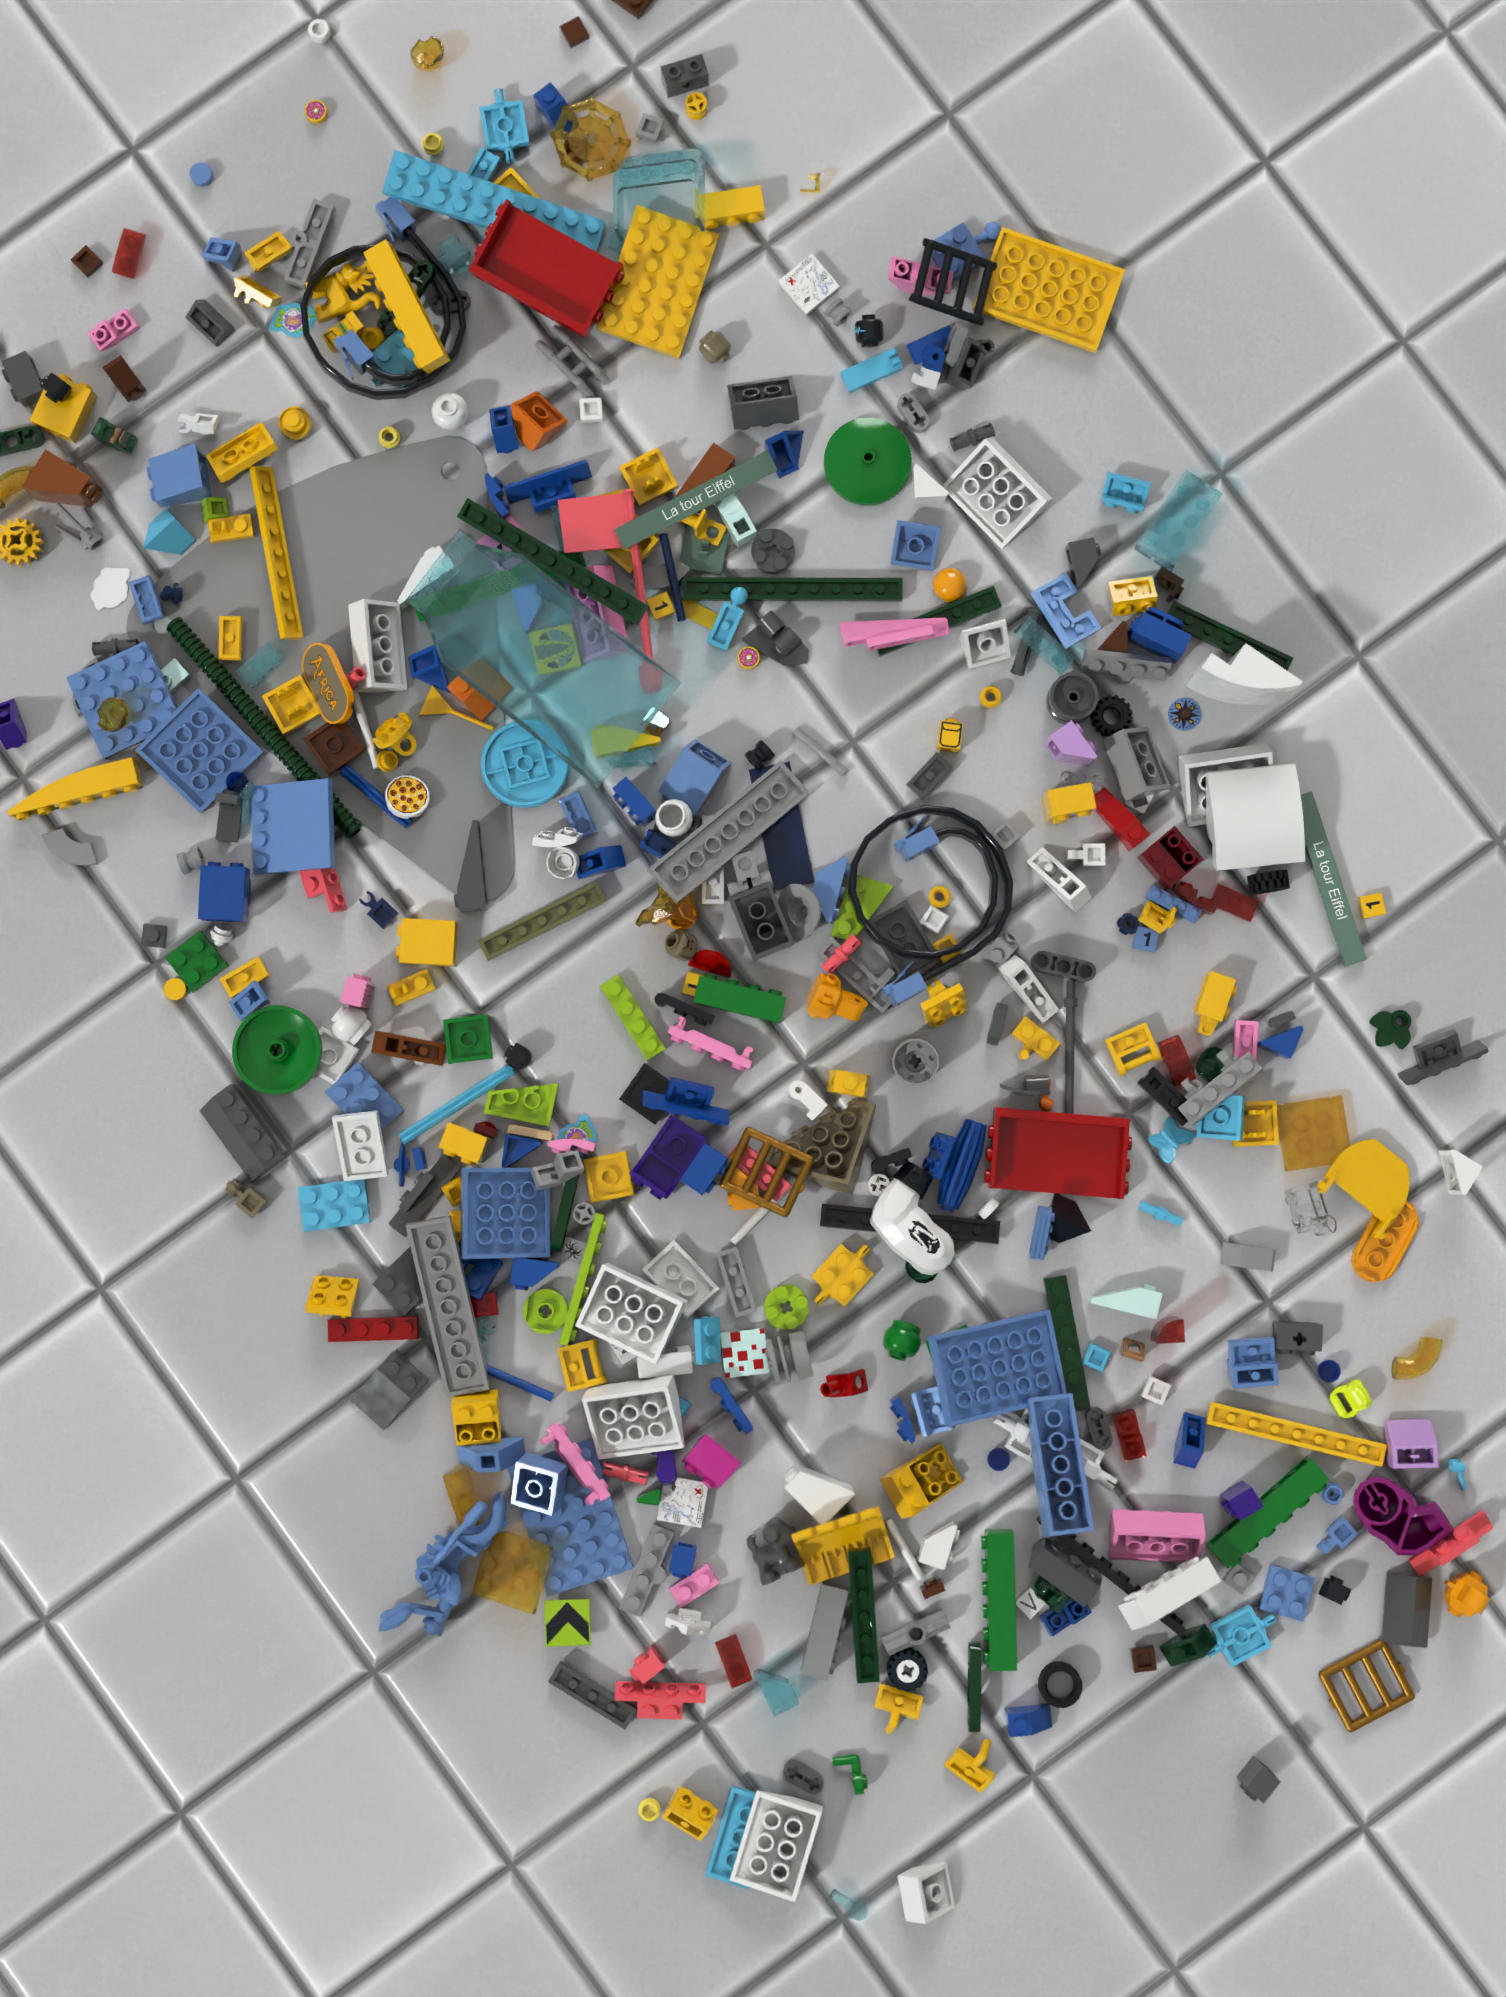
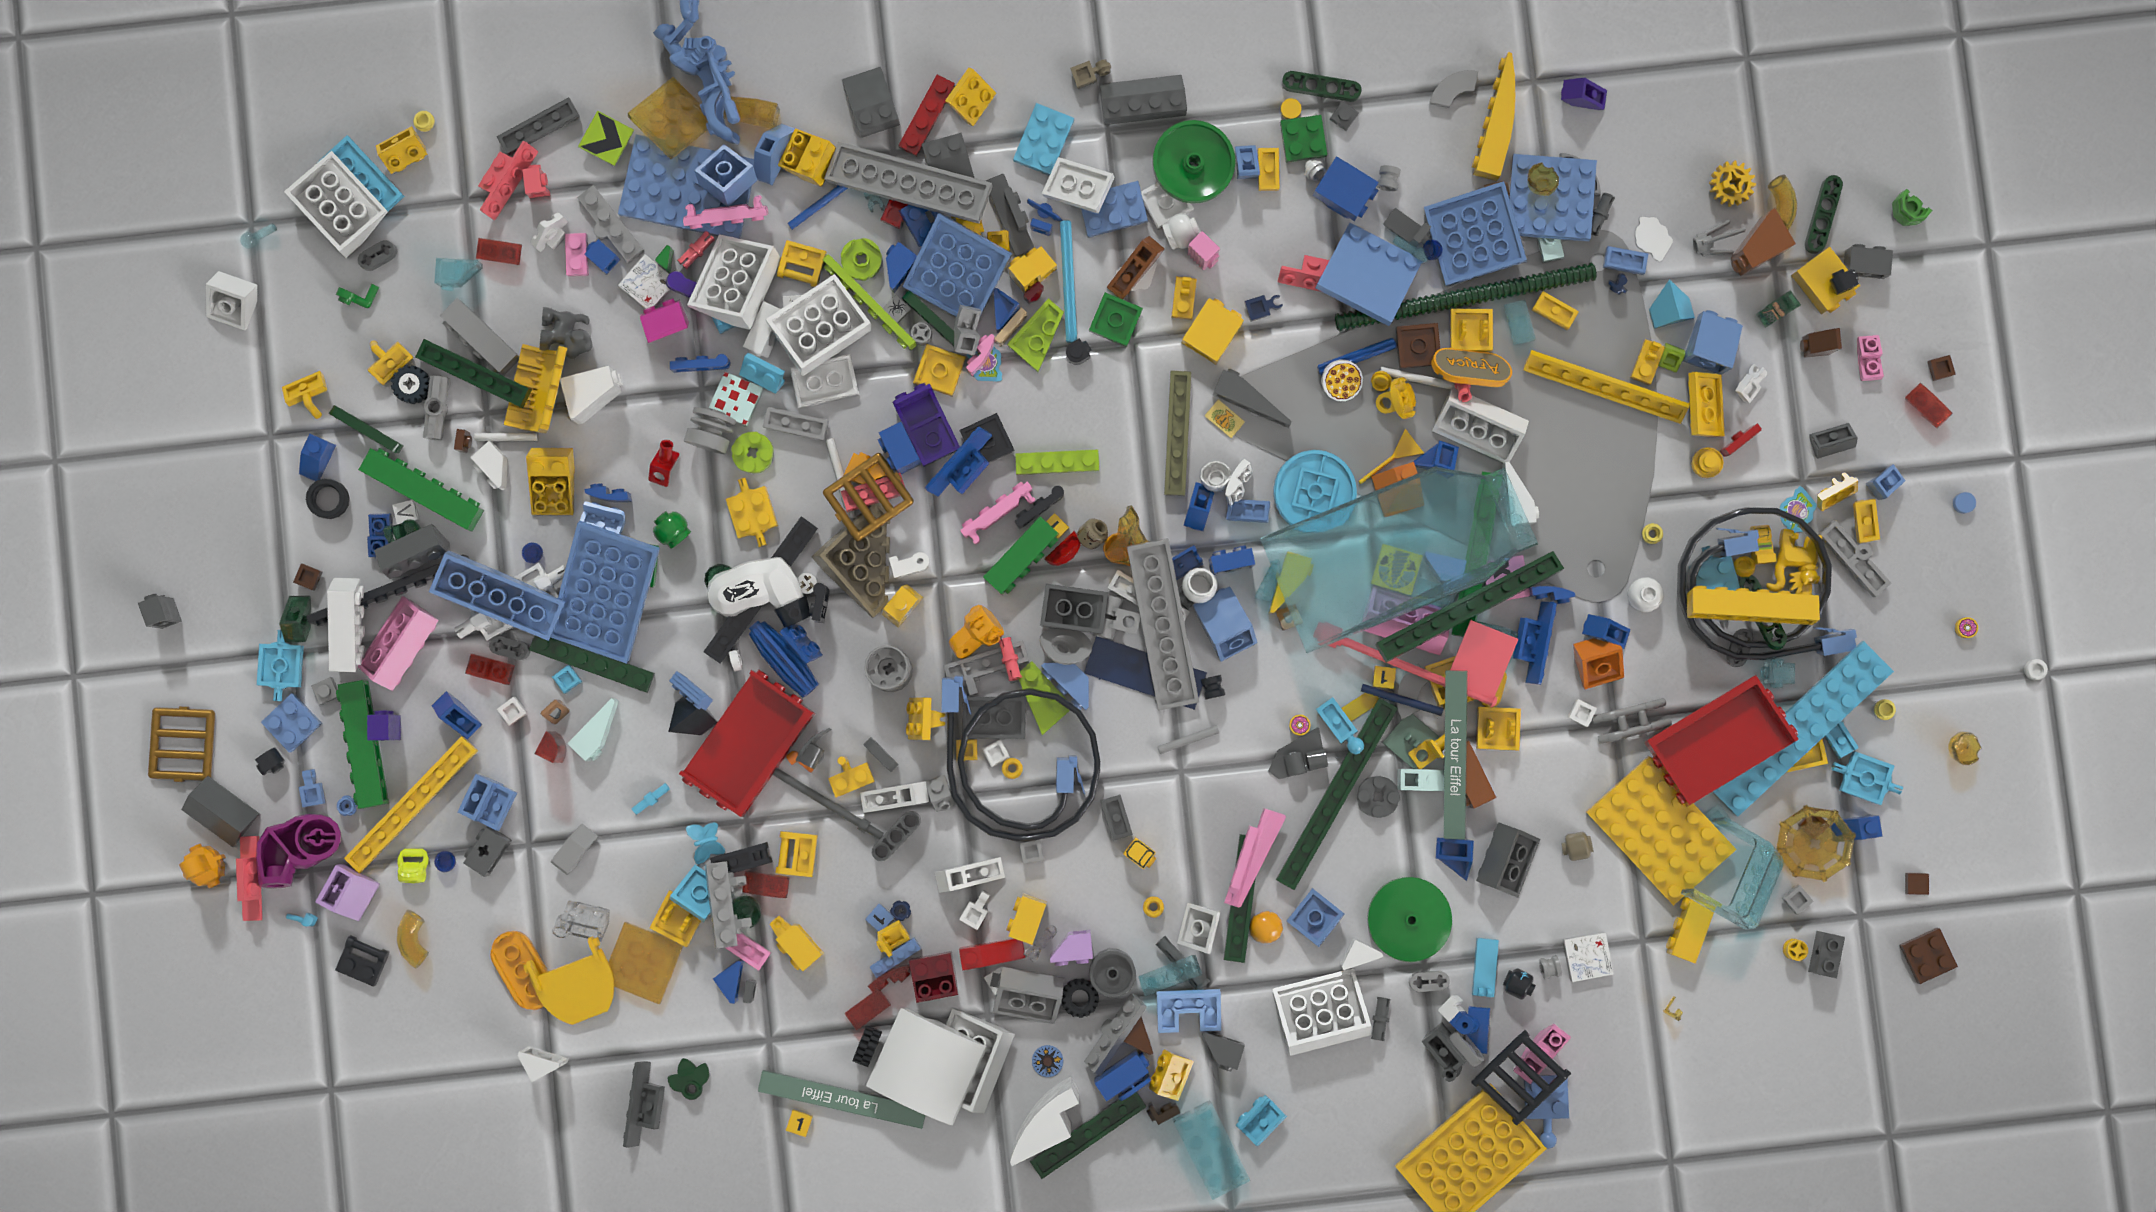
camera: 120 degrees right, 0 degrees up
(134, 974) = (1321, 90): none -> dark green beam
(256, 405) = (1740, 439): none -> red plate
(503, 886) = (1224, 418): none -> clear yellow sticker
(1471, 1393) = (360, 967): none -> black plate

